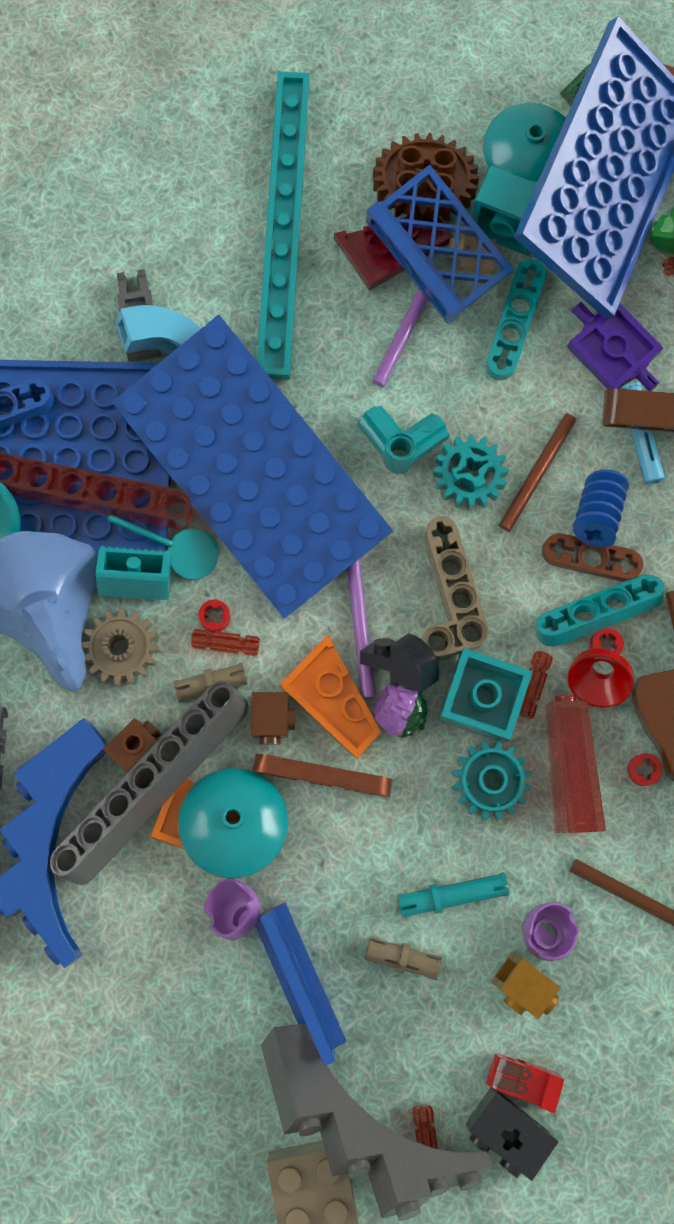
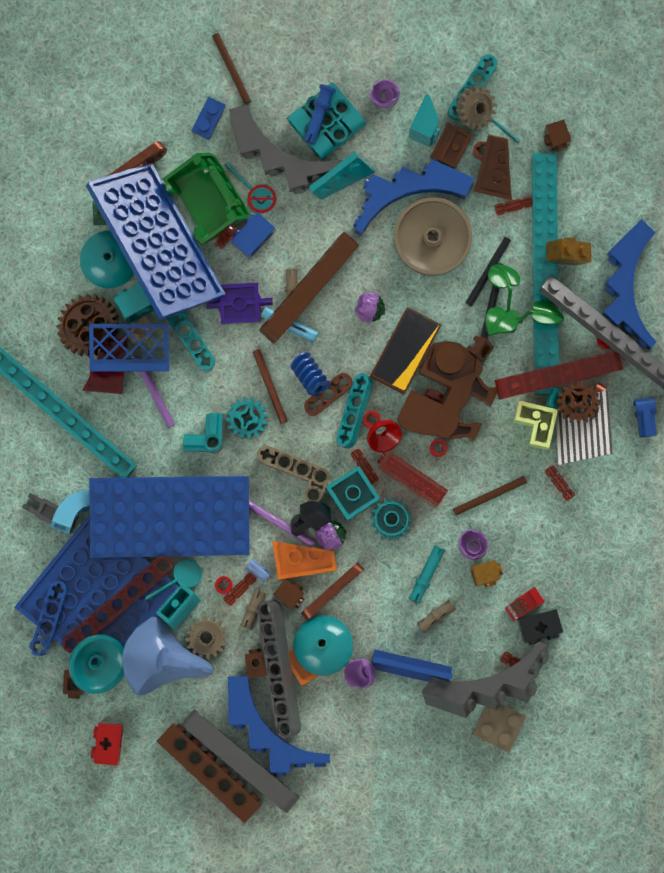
camera: 50 degrees left, 5 degrees up
(271, 646) = (257, 570): none -> medium blue pin

